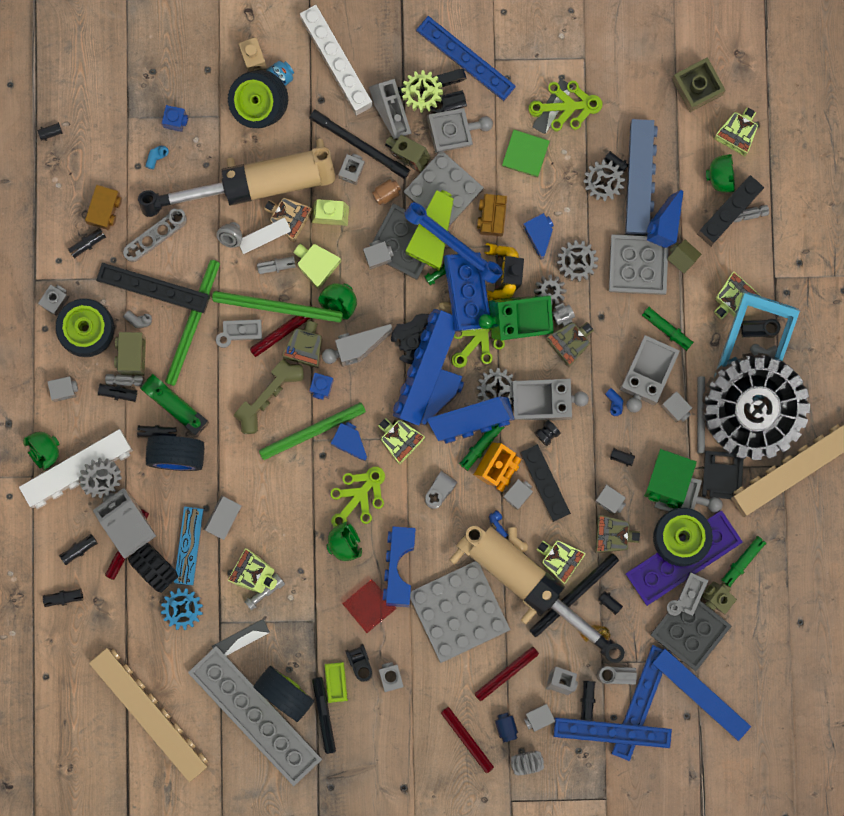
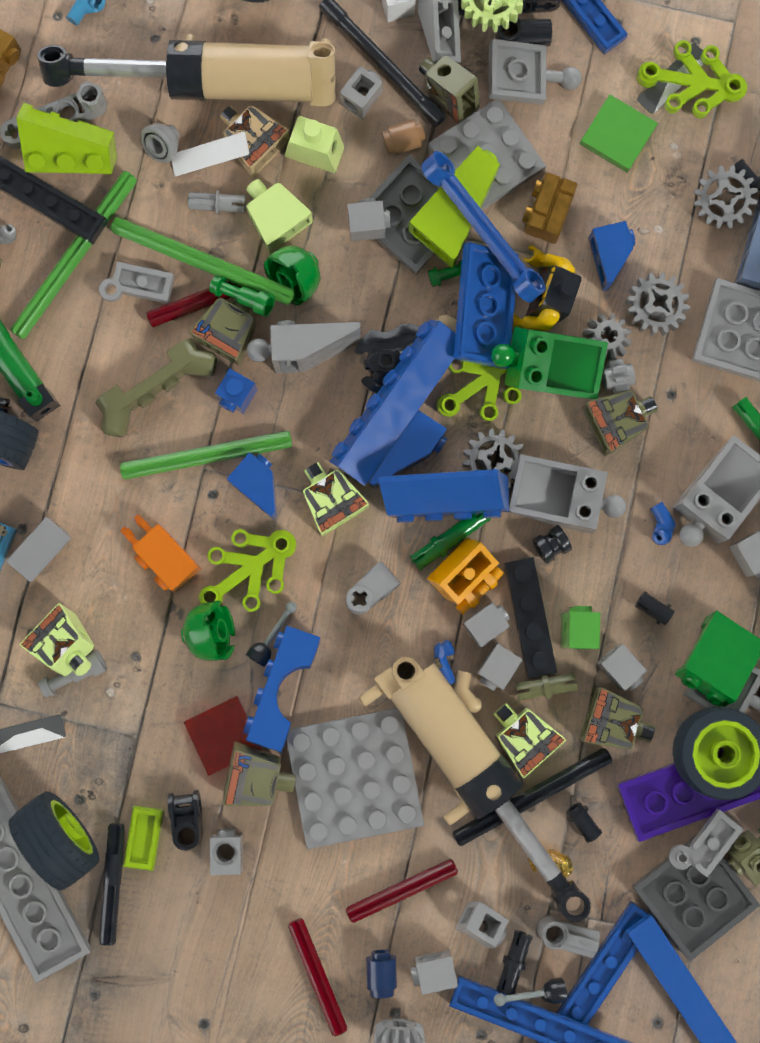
camera: 10 degrees right, 0 degrees up
(170, 254) = (63, 145): none -> lime wedge
(301, 501) = (162, 555): none -> orange hinge
(323, 325) = (260, 302): none -> green piece
(379, 547) = (260, 651): none -> hinge
(396, 626) = (254, 777): none -> olive torso
(532, 519) = (498, 667): none -> light grey brick
(565, 524) = (546, 686): none -> olive pin
(577, 482) = (580, 628): none -> bright green brick
(616, 711) = (553, 991): none -> hinge

